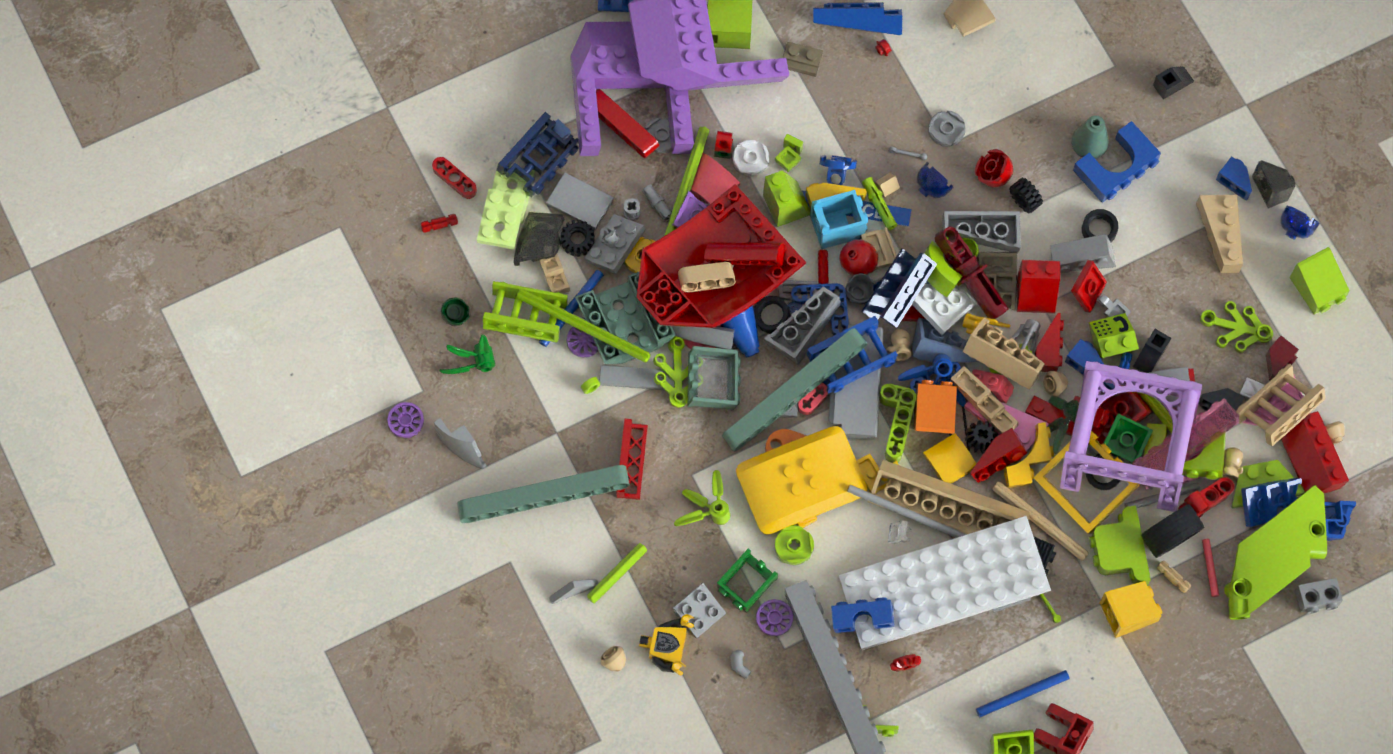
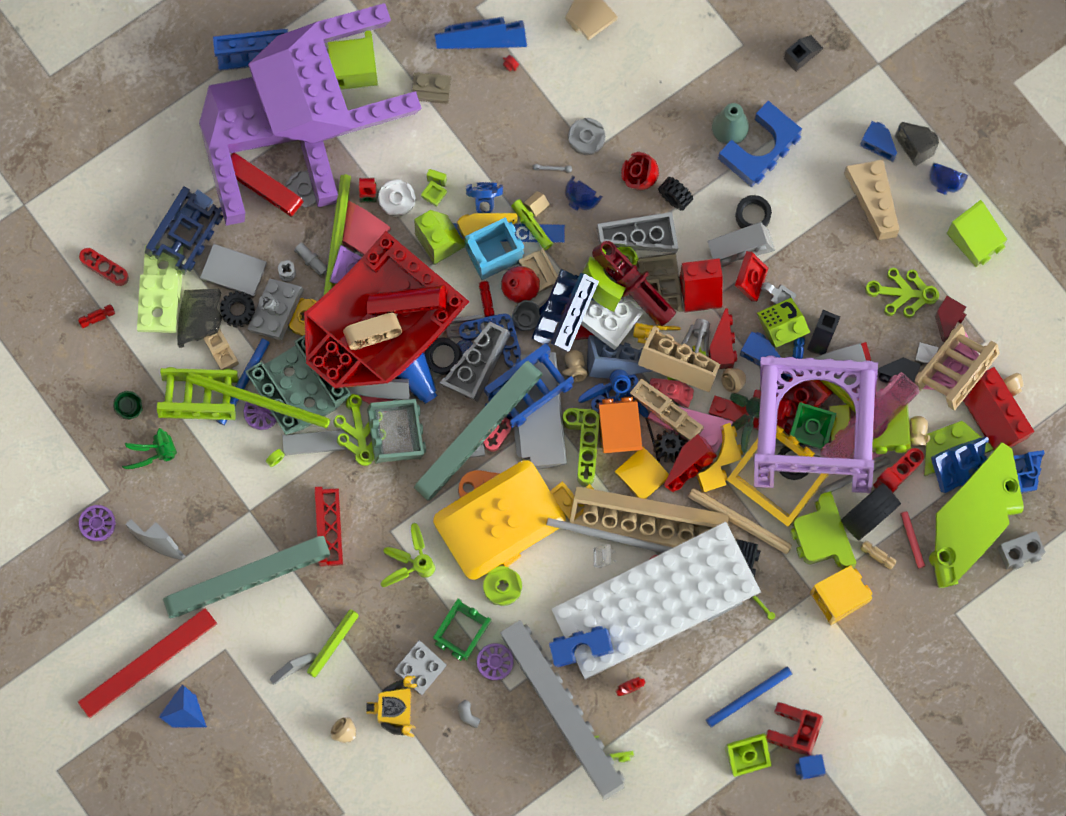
camera: 10 degrees left, 5 degrees up
(431, 562) = (147, 663): none -> red tile
(459, 613) = (183, 710): none -> blue slope

